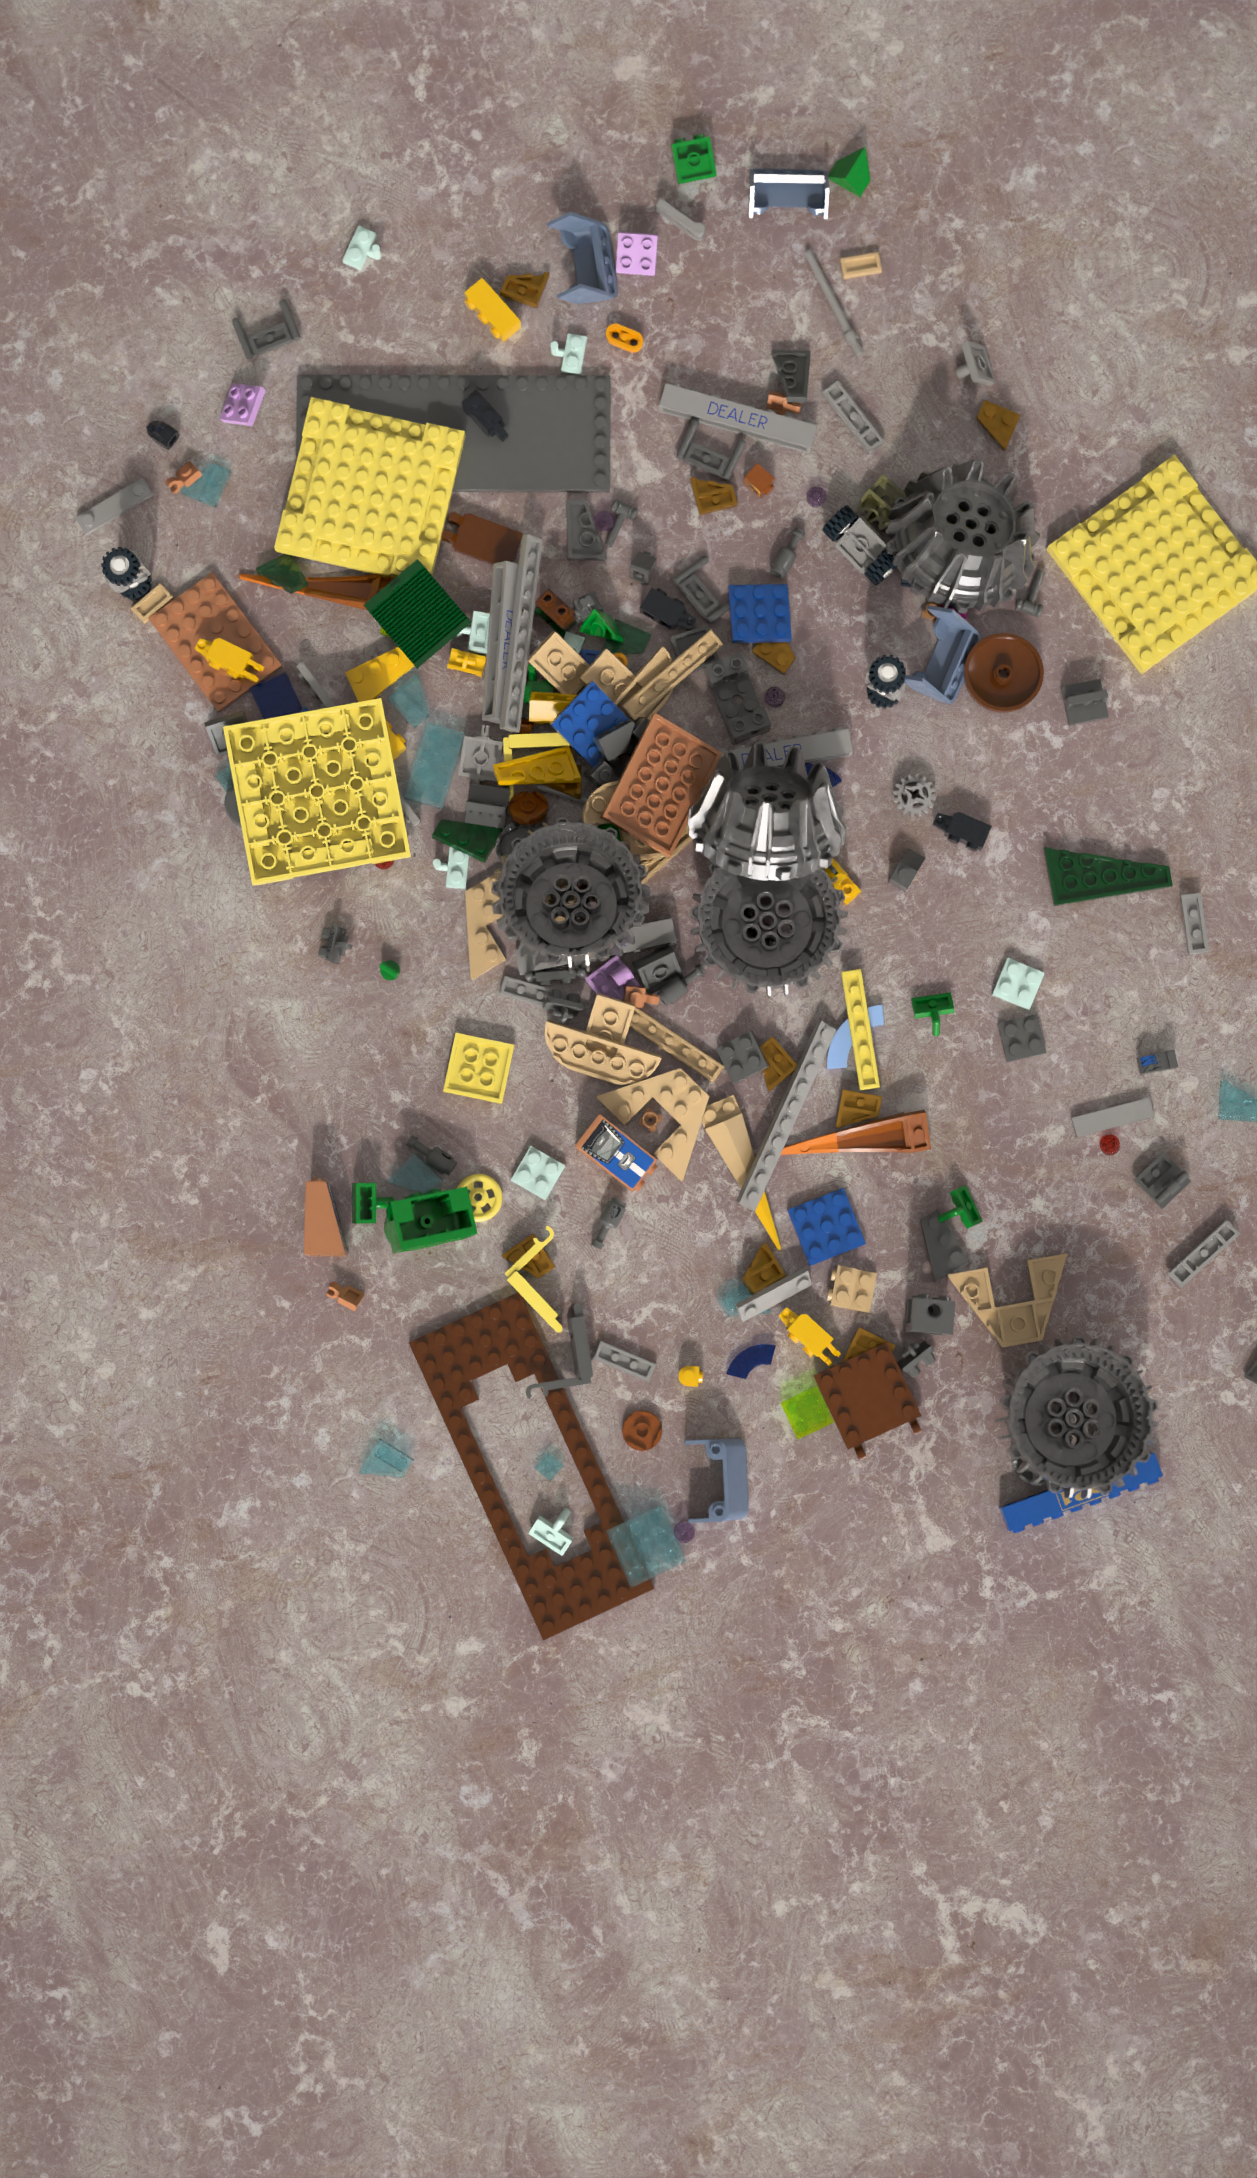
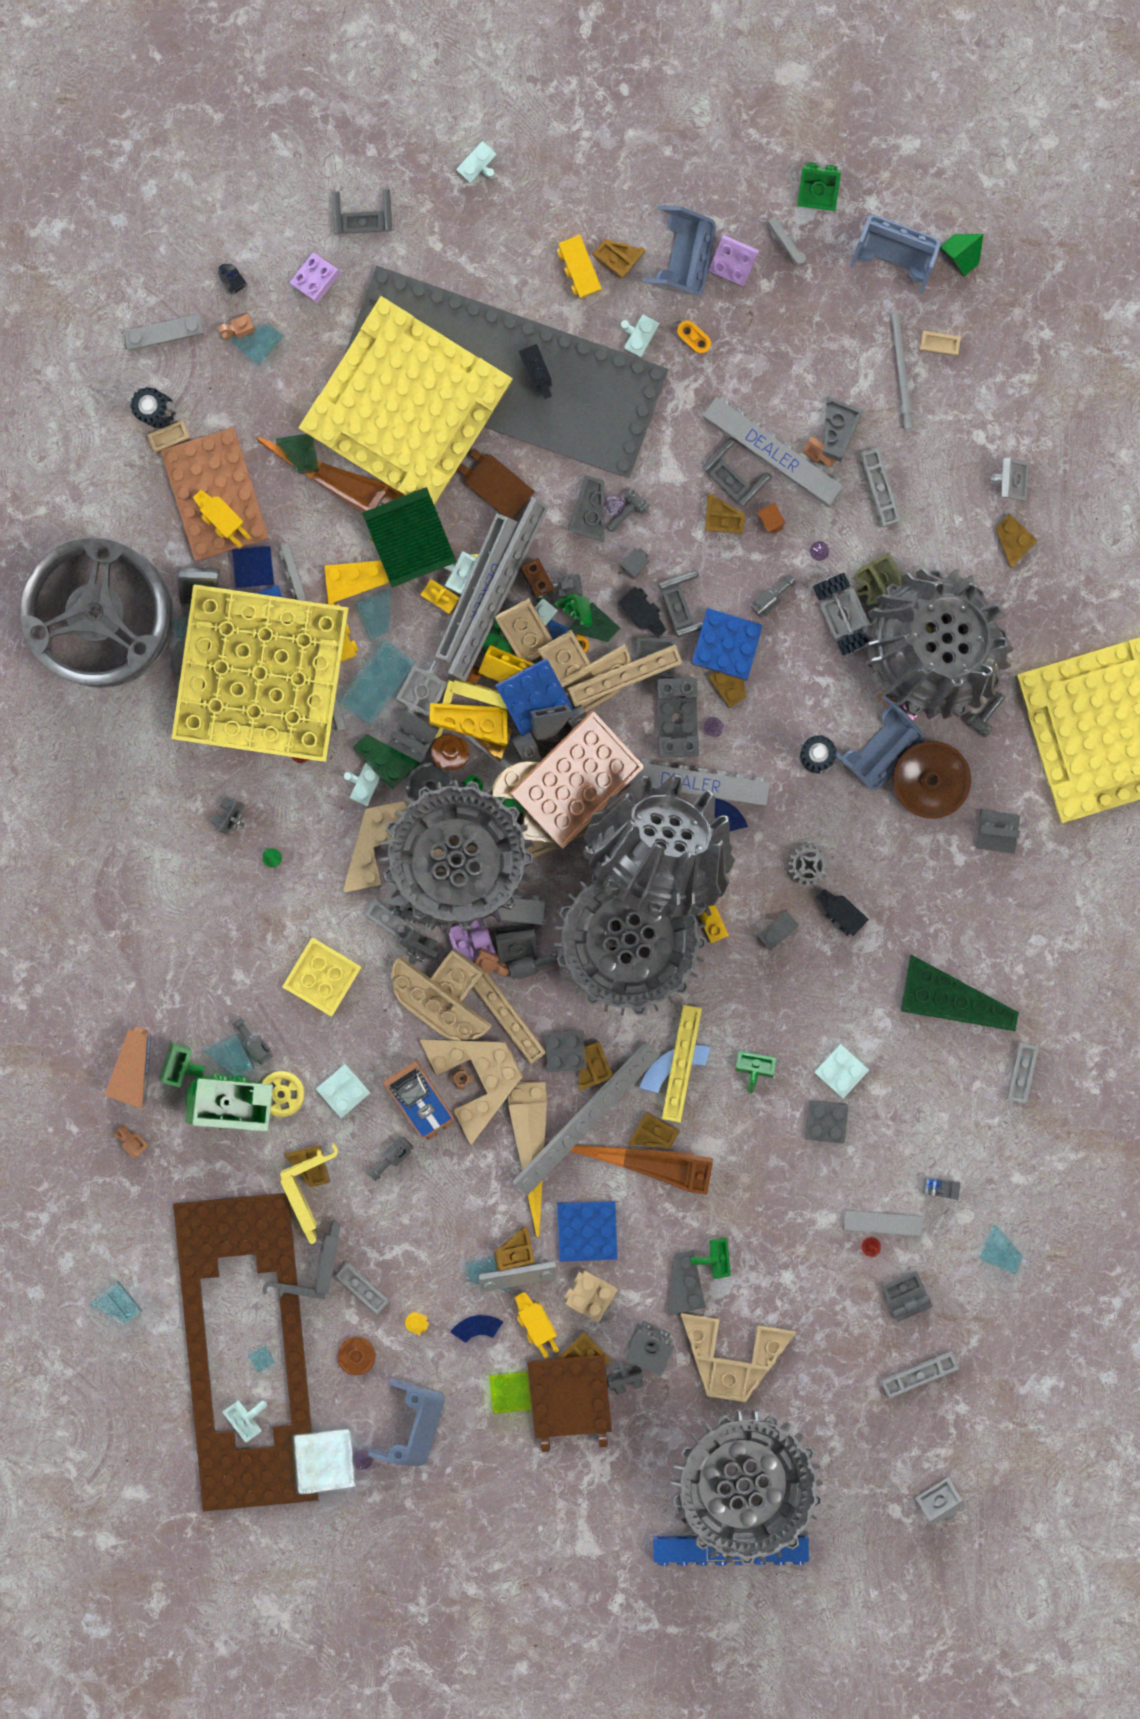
camera: 15 degrees right, 5 degrees up
(121, 793) = (103, 598): none -> flat silver wheel

